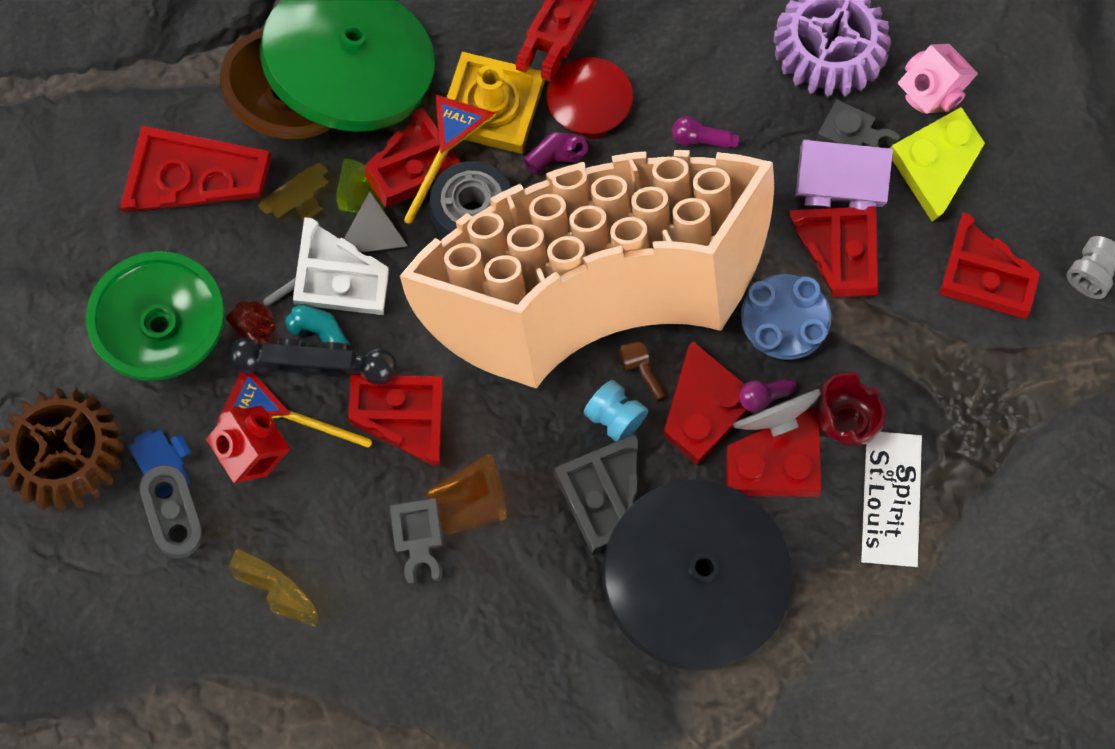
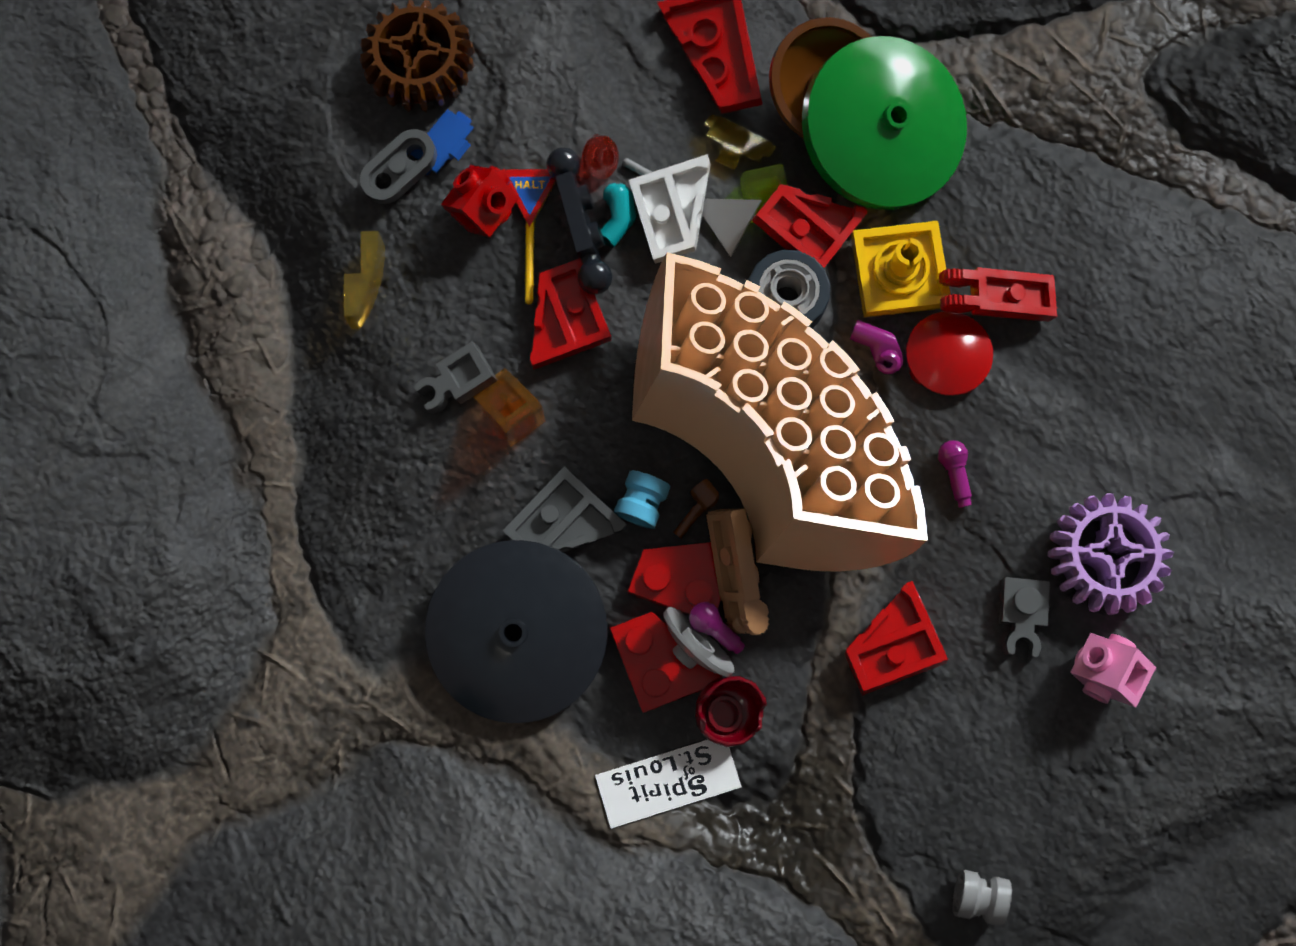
camera: 65 degrees right, 10 degrees up
(149, 292) = (557, 51): green dish -> none
(455, 124) = (861, 245): piece -> none
(721, 349) = (736, 571): none -> medium nougat hinge
(786, 316) = (805, 617): medium blue dish -> none
(843, 174) = (967, 616): lavender brick -> none
(938, 160) = (1030, 702): neon yellow wing -> none
(988, 273) = (930, 791): red wing -> none

